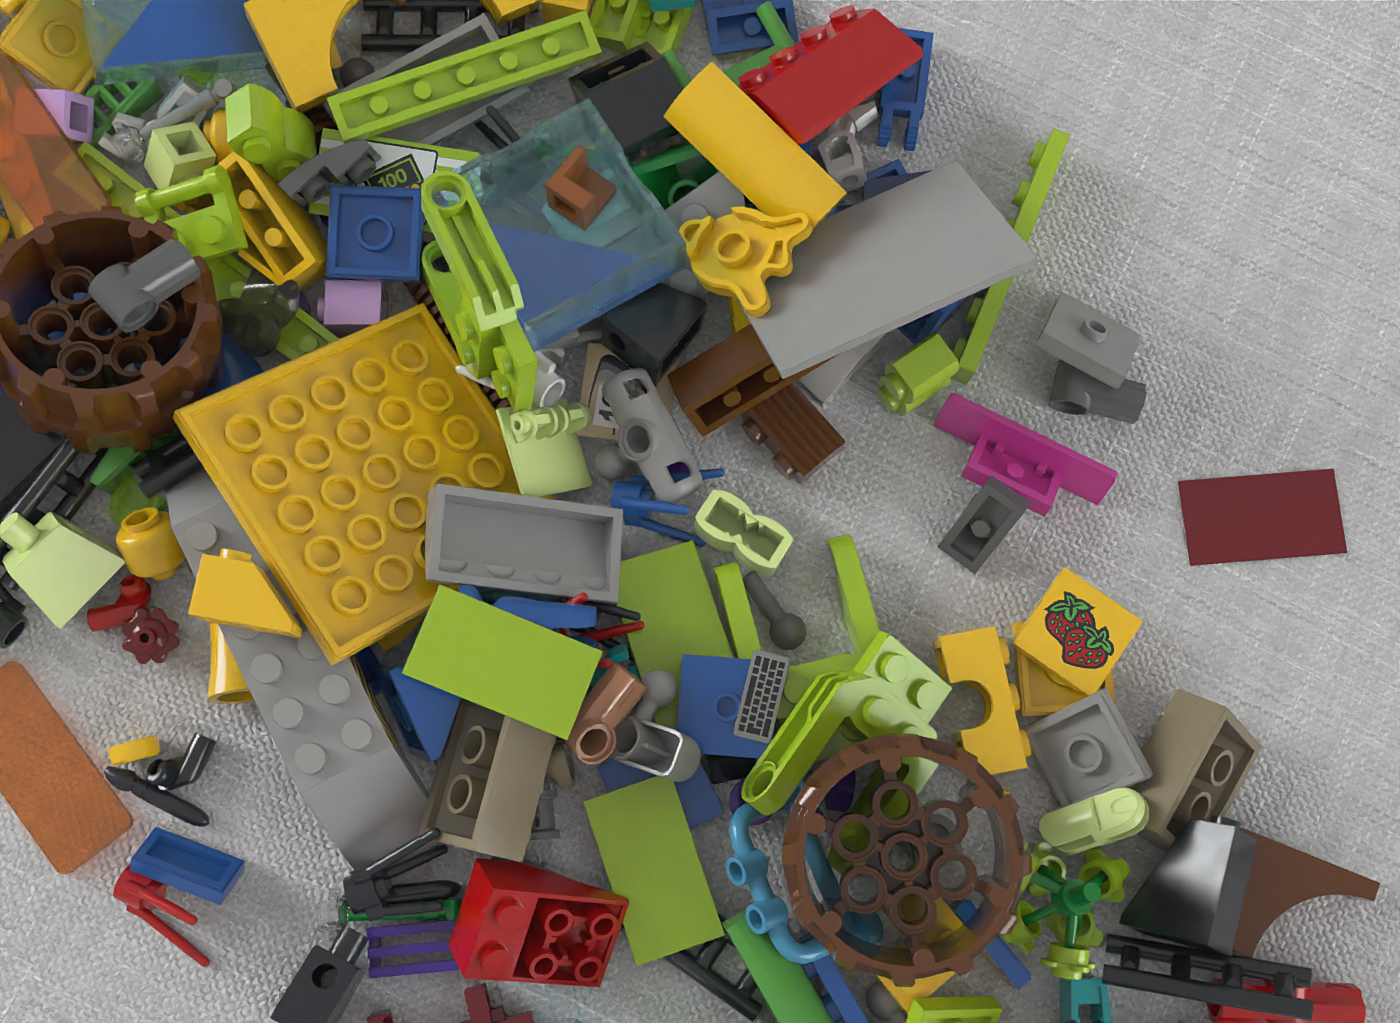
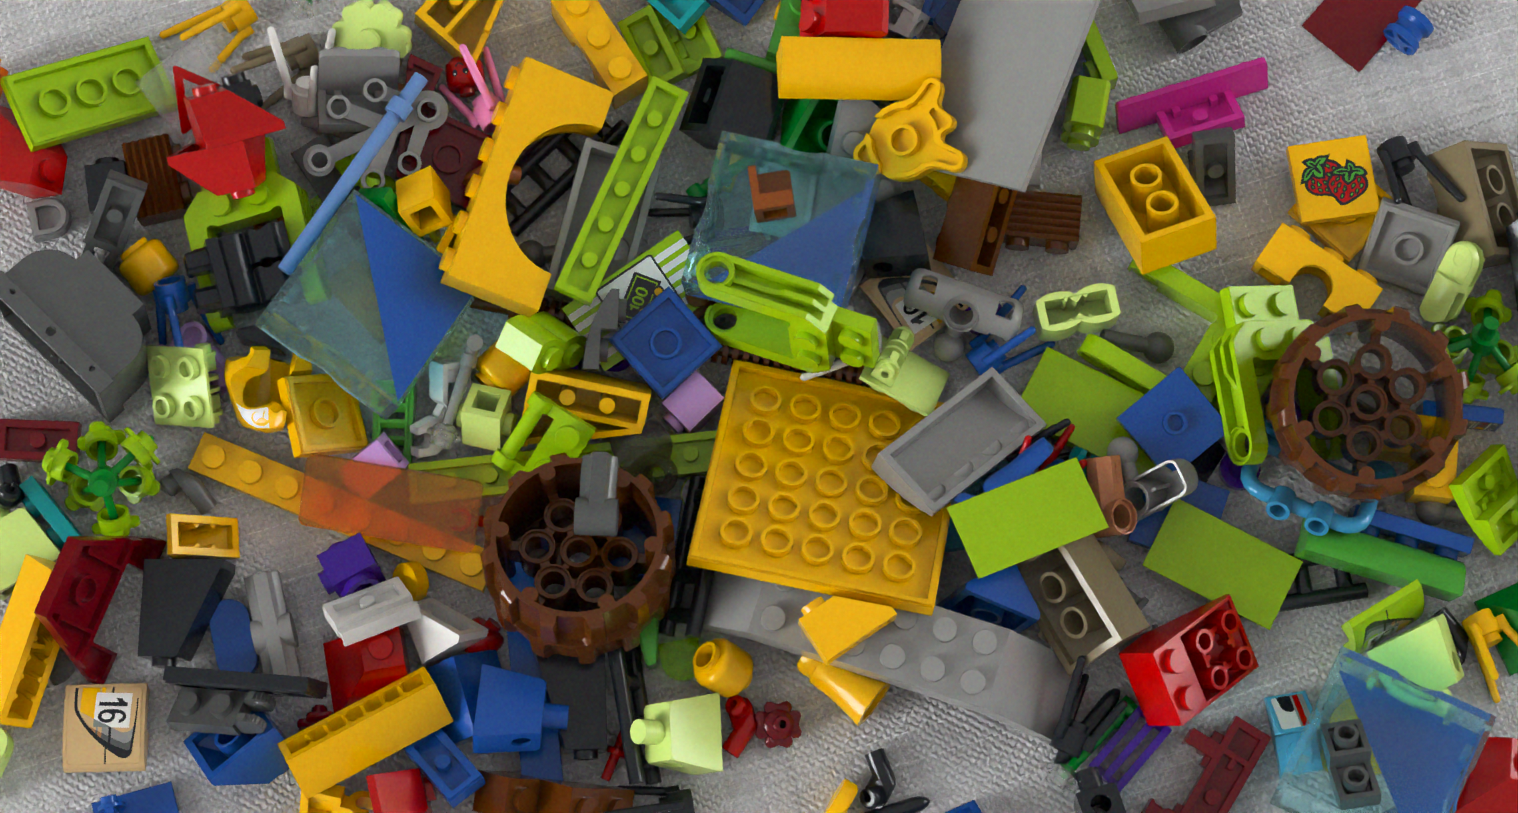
camera: 35 degrees left, 0 degrees up
(761, 696) = (1190, 396): sticker -> none
(897, 507) = (1155, 205): none -> yellow brick
(1150, 670) = (1399, 160): none -> black plant
(1268, 569) = (1408, 30): none -> blue wheel

